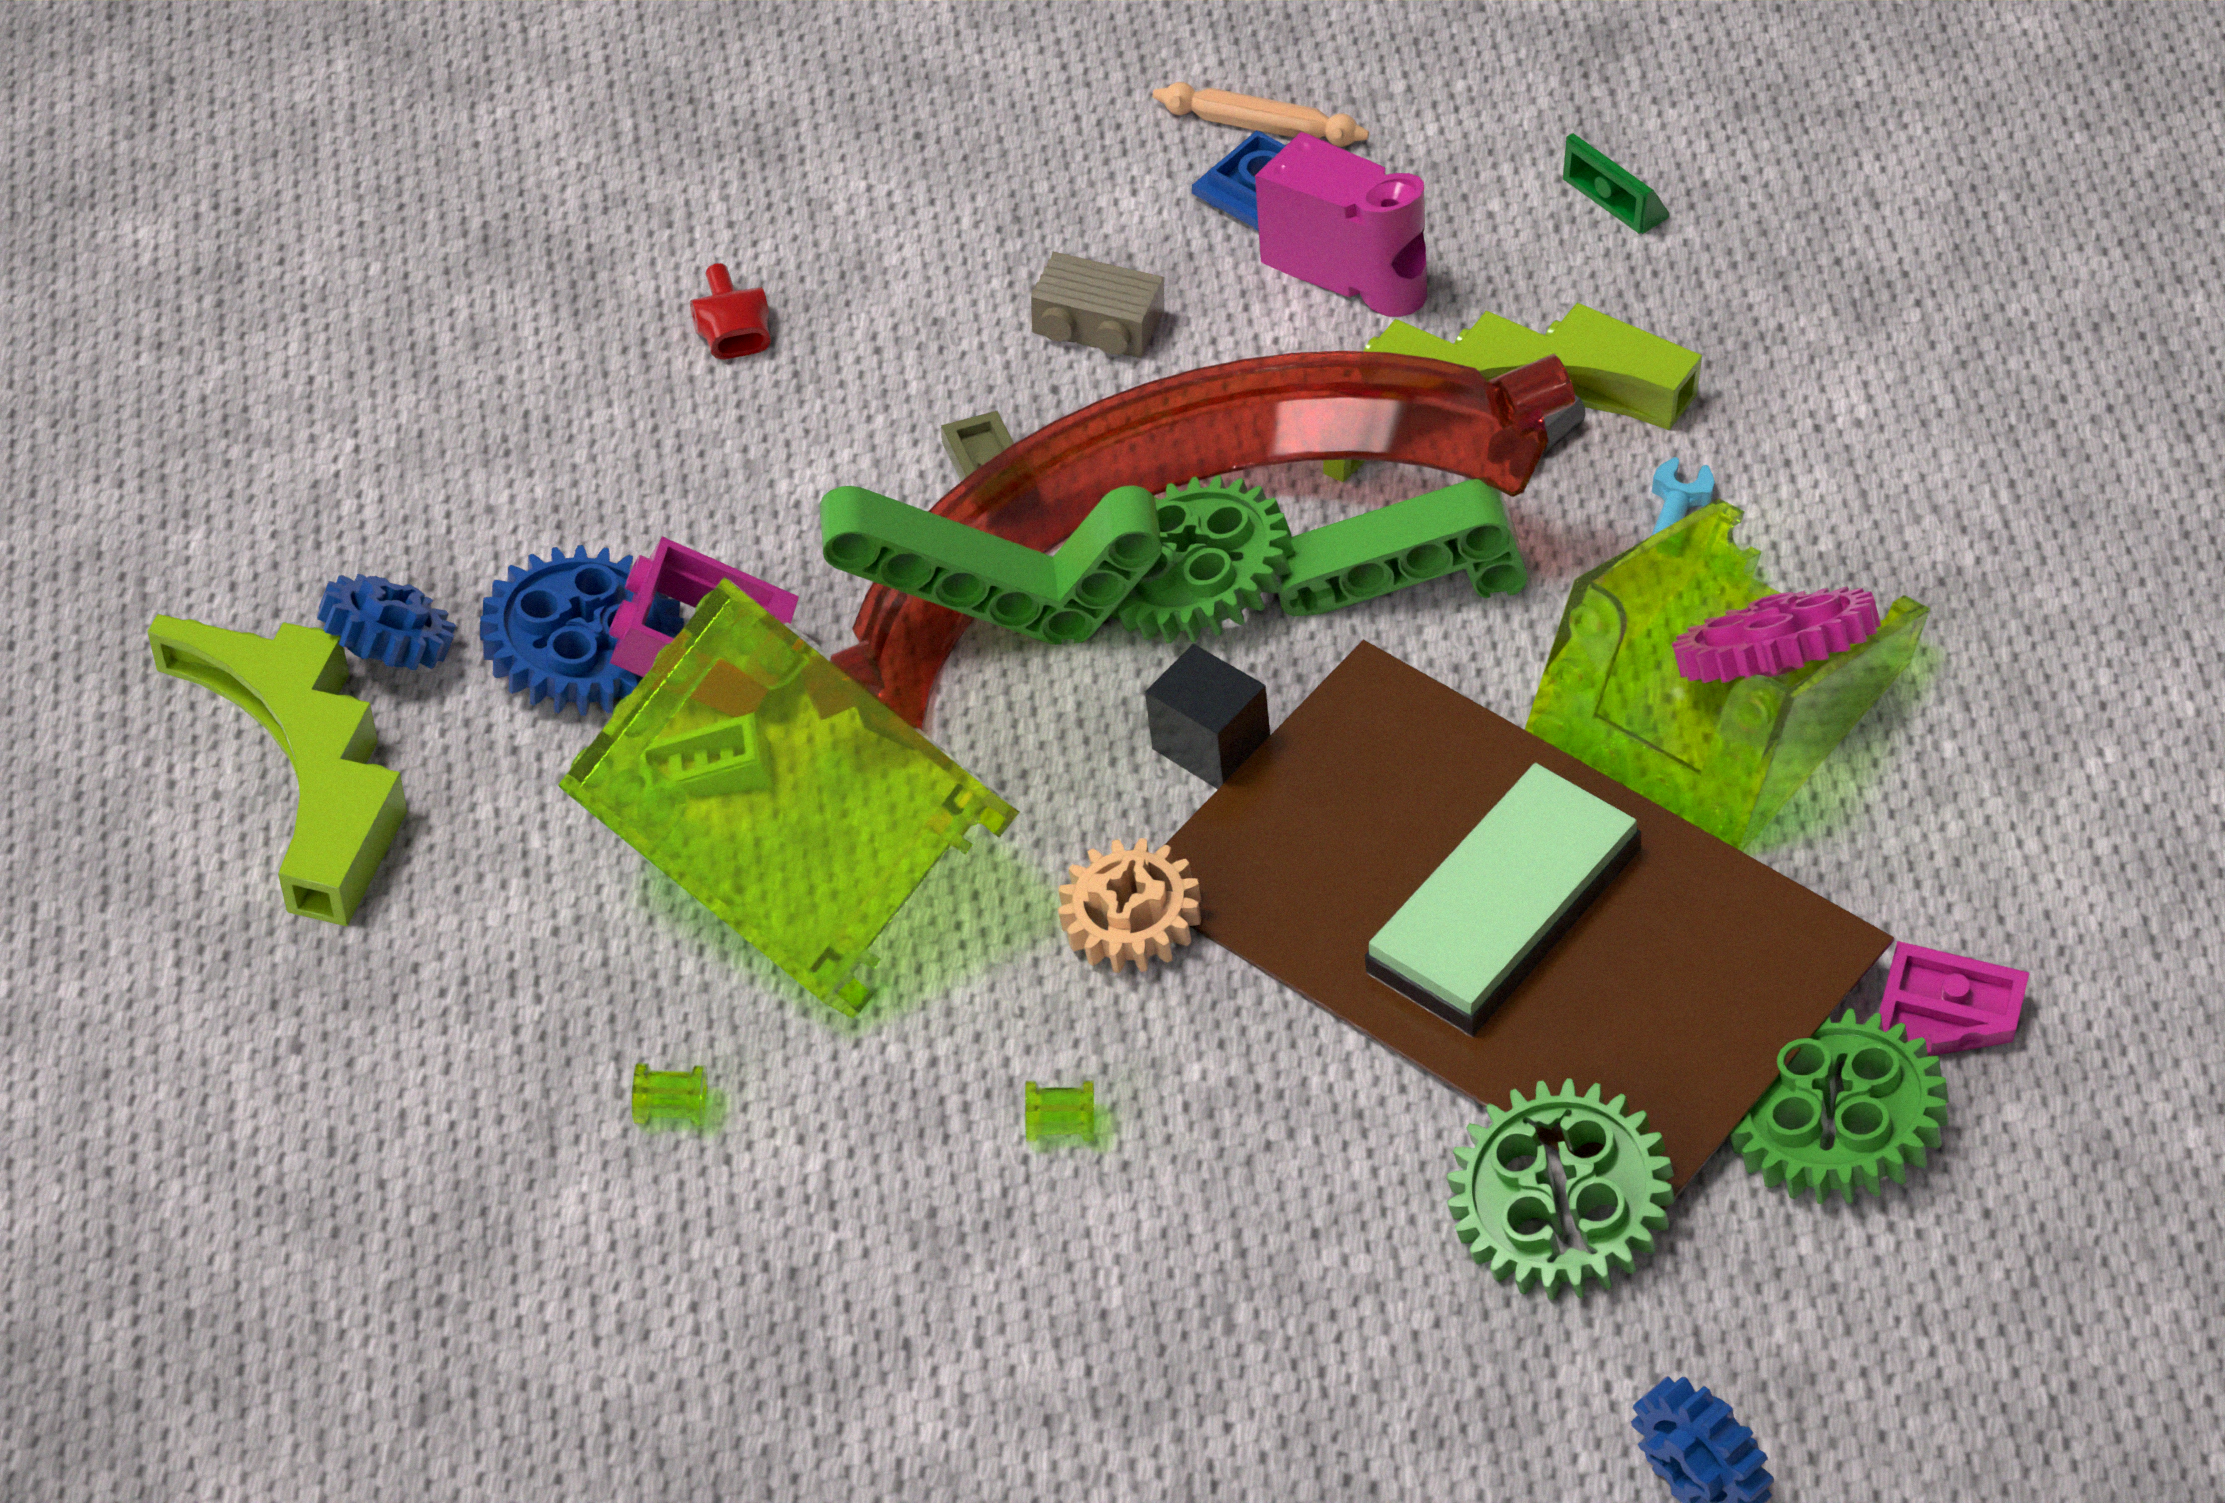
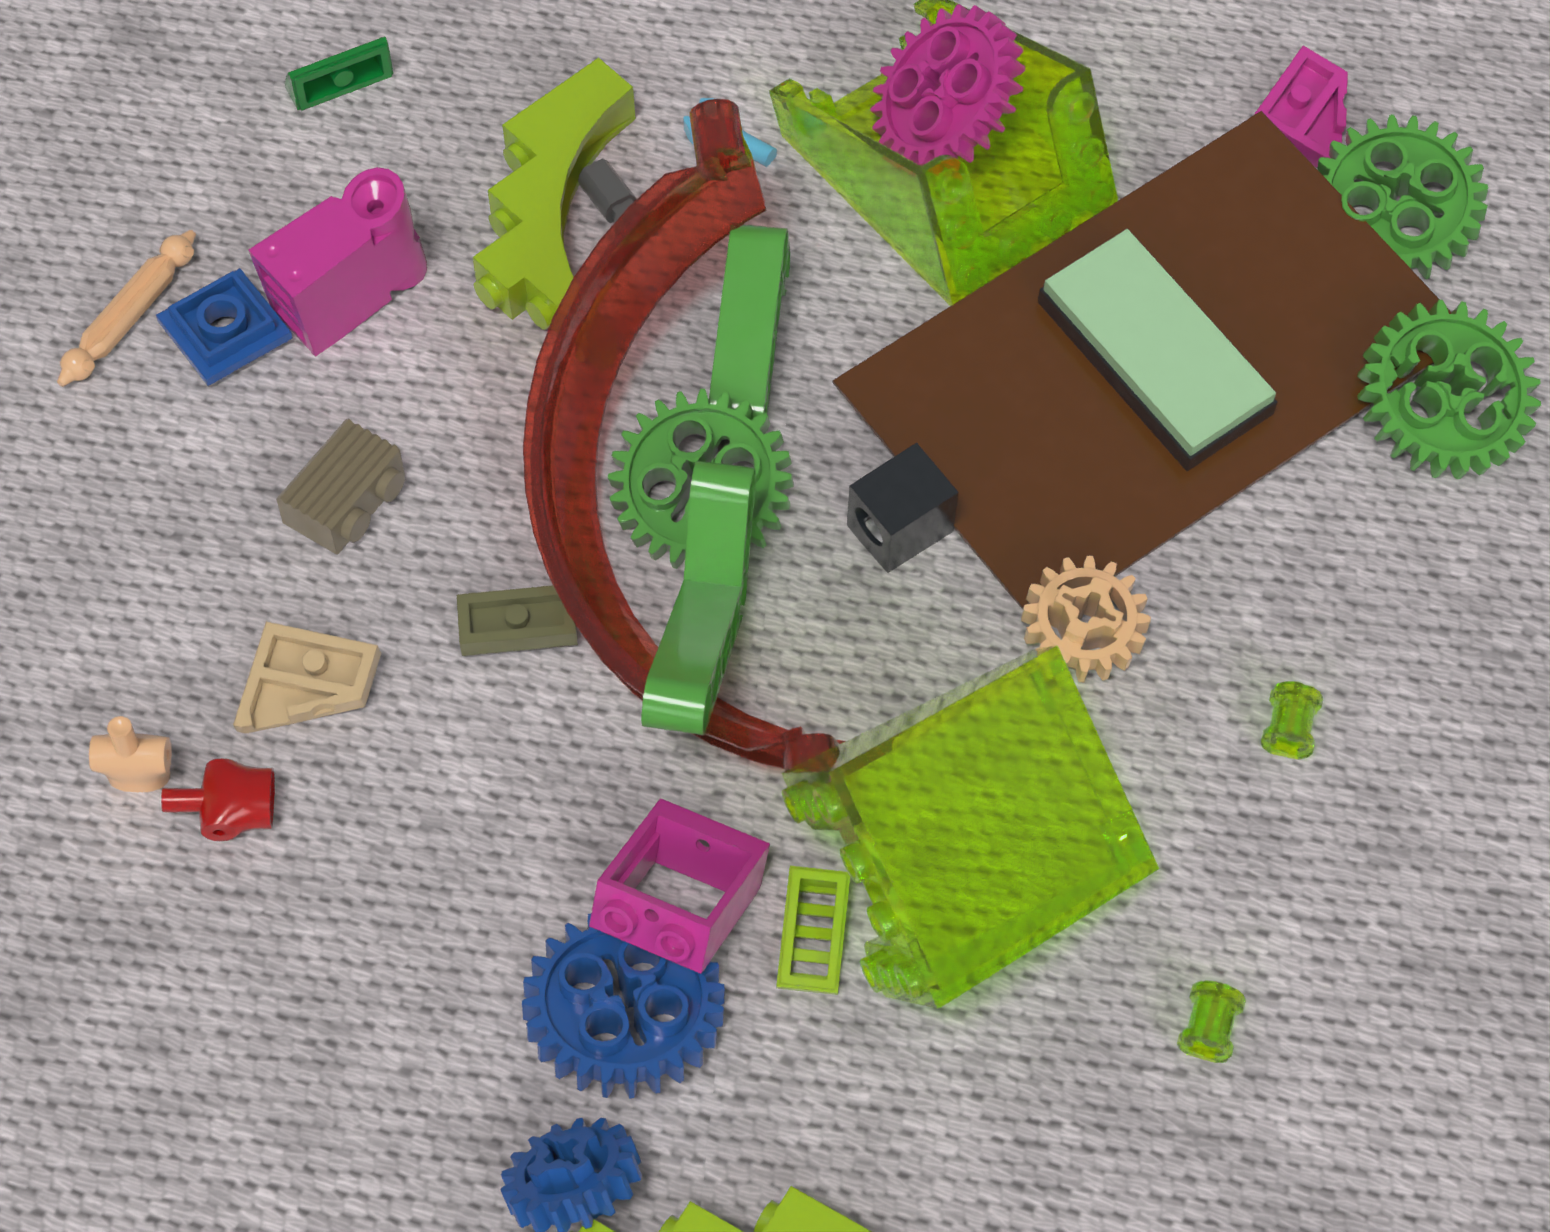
camera: 75 degrees left, 10 degrees up
(748, 232) = (131, 759): none -> light nougat piece
(876, 332) = (304, 678): none -> tan wing

